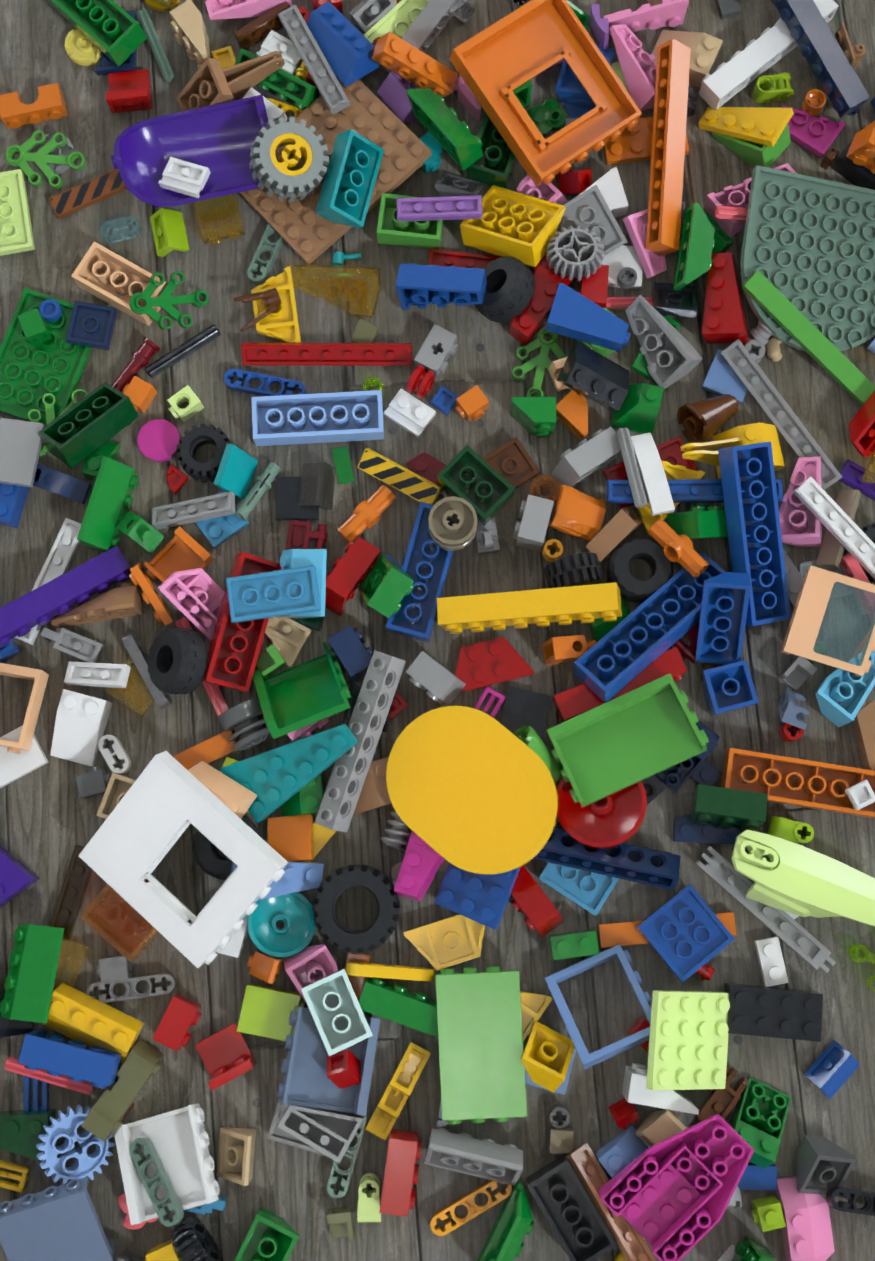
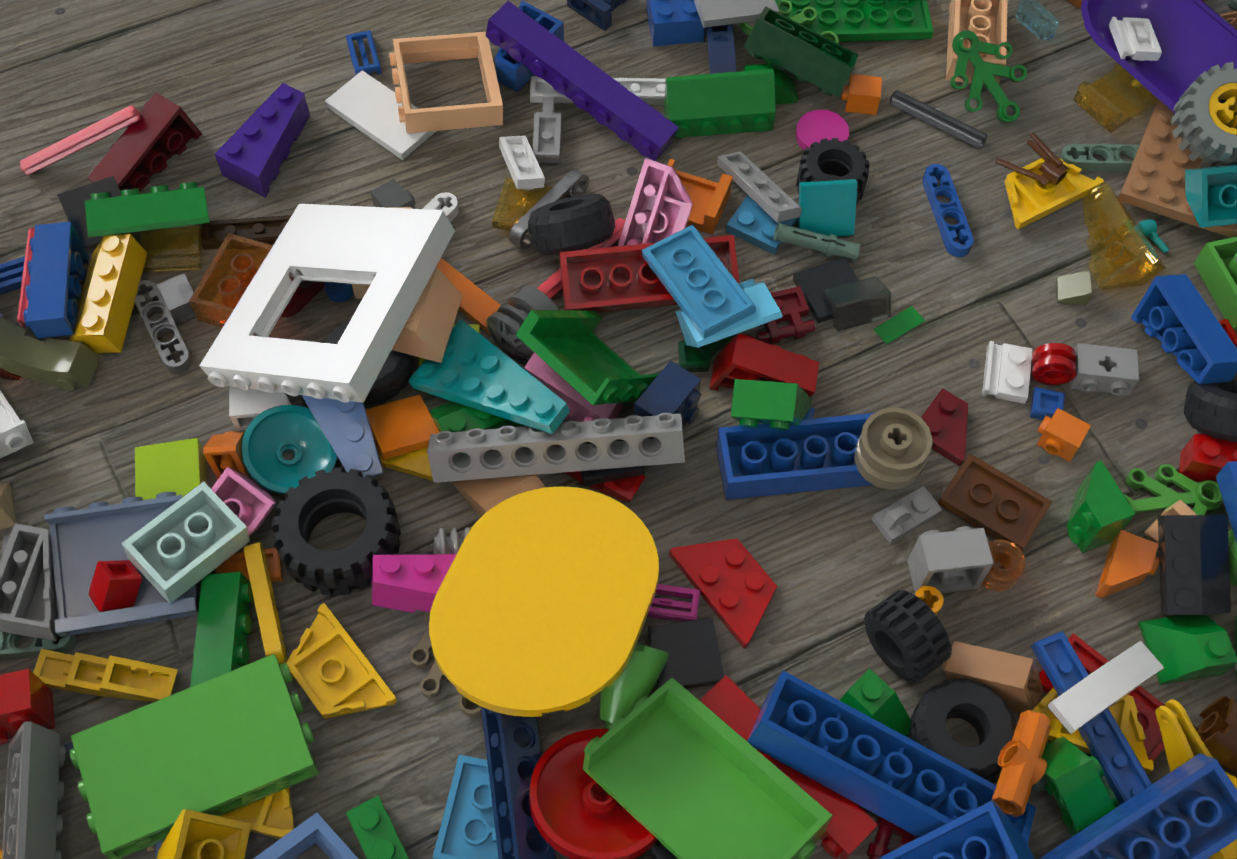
camera: 65 degrees right, 20 degrees down
(79, 727) = (455, 167): white slope -> none
(91, 325) = (914, 24): dark blue tile -> none
(111, 605) = (606, 148): medium nougat wedge -> none
(139, 359) = (903, 82): dark red pin -> none
(140, 532) = (704, 145): green torso -> none
(161, 611) = (622, 197): orange wing -> none
(169, 231) = (1065, 60): lime panel -> none
(175, 479) = (786, 164): red tile -> none
(177, 1022) = (130, 385): red brick -> none
(185, 395) = (878, 139): yellowish green brick -> none
(225, 1055) = (100, 454): red bracket -> none
(270, 662) = (615, 332): bright green panel -> none
(287, 637) = (654, 336): tan wing -> none
(318, 418) = (942, 271): light blue brick -> none
(327, 354) = (1026, 258): red tile -> none
(367, 514) = (854, 367): orange piece -> none
(369, 382) = (1010, 326): clear neon green bush -> none
(398, 477) = (920, 377): yellow tile -> none
(438, 680) = (679, 511): light grey brick -> none
(476, 895) = (407, 678): blue plate -> none
(477, 483) = (959, 467): dark green brick -> none
(530, 607) = (836, 594): yellow brick -> none
(535, 904) = (423, 752): red wedge -> none
(565, 649) = (799, 660): orange torso -> none
(578, 513) = (994, 614): orange slope -> none
(587, 457) = (1078, 600): light grey wedge -> none
(631, 467) = (1098, 655): light grey axle -> none

